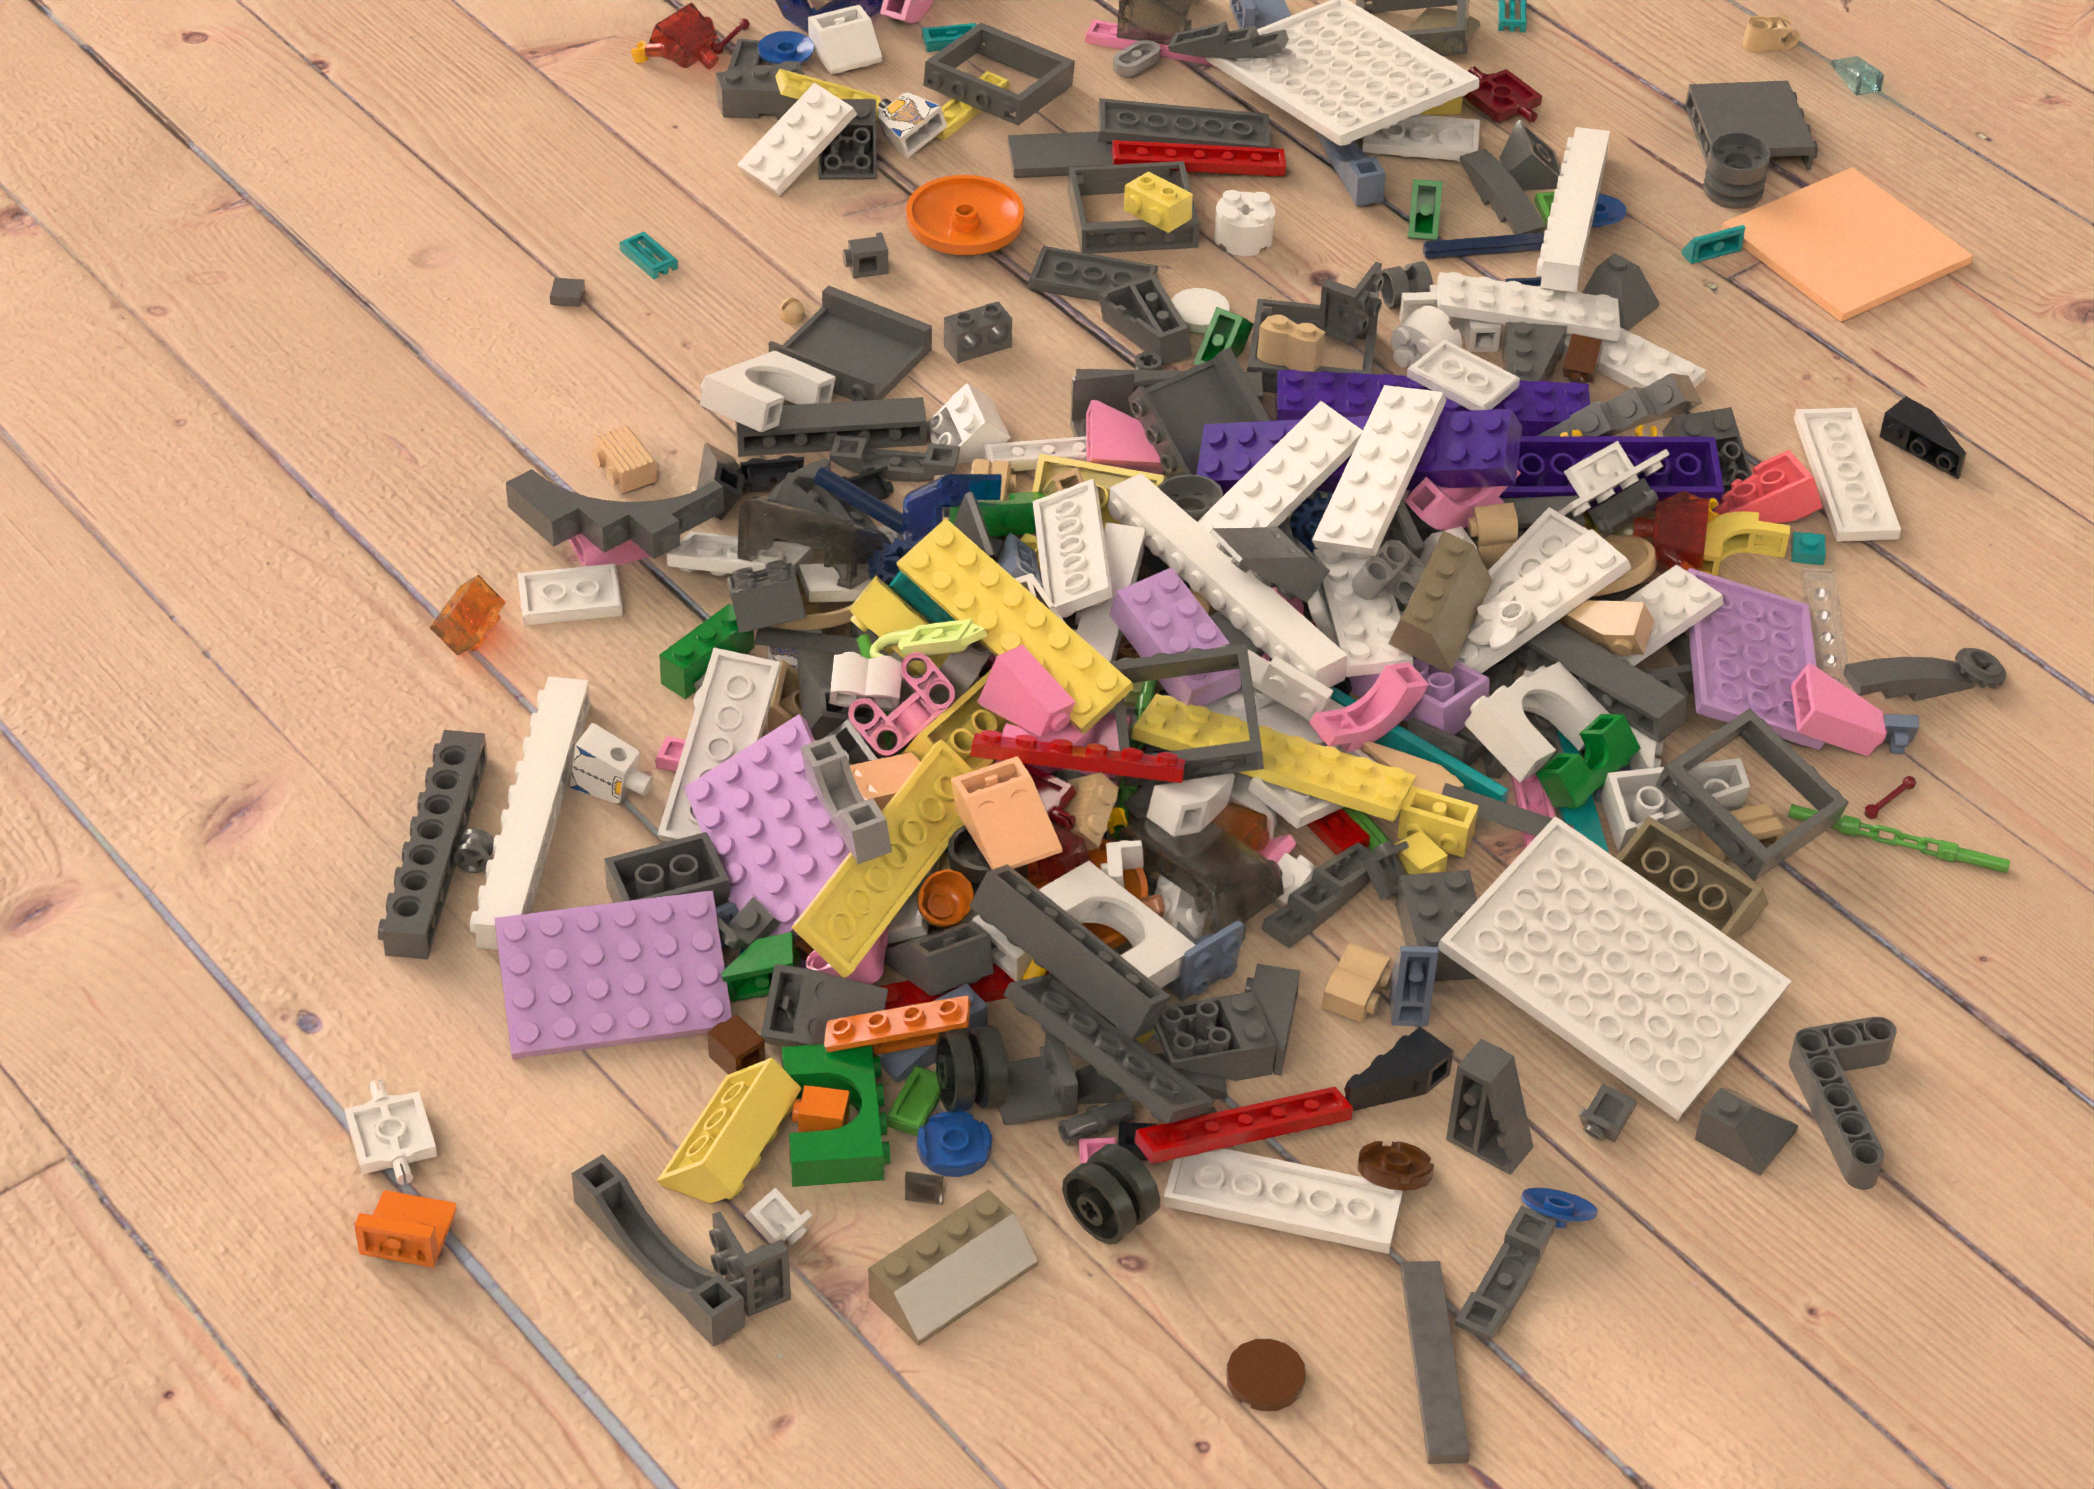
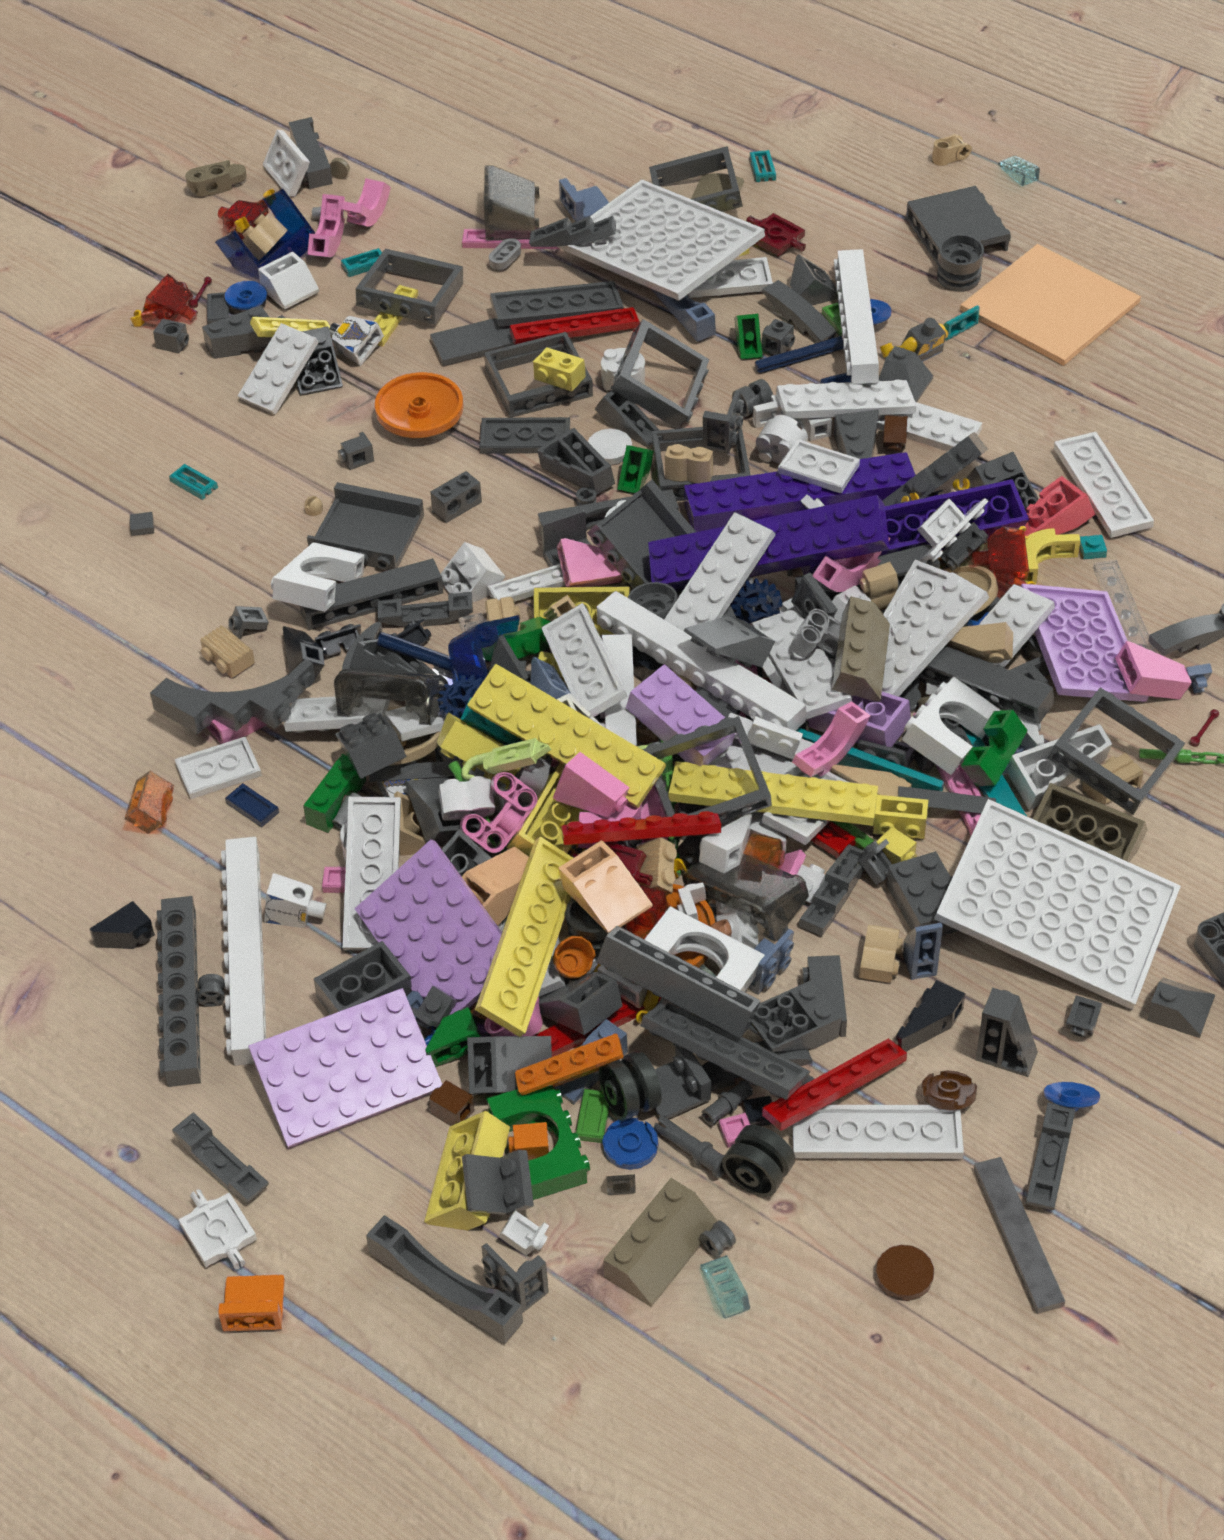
camera: 10 degrees left, 5 degrees up
(386, 757) = (123, 929): none -> black slope
(417, 1049) = (219, 1160): none -> dark grey slope
(598, 646) = (252, 805): none -> dark blue tile
(663, 425) = (247, 618): none -> dark grey bracket
(675, 79) = (171, 336): none -> dark grey brick
(759, 1148) = (498, 1183): none -> dark grey bracket
(856, 820) = (502, 918): light grey arch -> none
(1022, 1342) = (731, 1302): none -> clear light blue slope
(1029, 1279) = (717, 1238): none -> dark grey wheel
(1043, 1172) = (701, 1151): none -> dark grey pin
(1230, 275) = (626, 417): none -> dark grey slope
(1265, 258) = (647, 397): none -> dark grey window
(1379, 470) = (792, 558): white plate -> none
(1462, 217) = (778, 337): none -> dark grey brick
(1501, 623) = (907, 657): white plate -> none
(1657, 253) = (924, 339): none -> torso
(1923, 435) = (1148, 444): black slope -> none

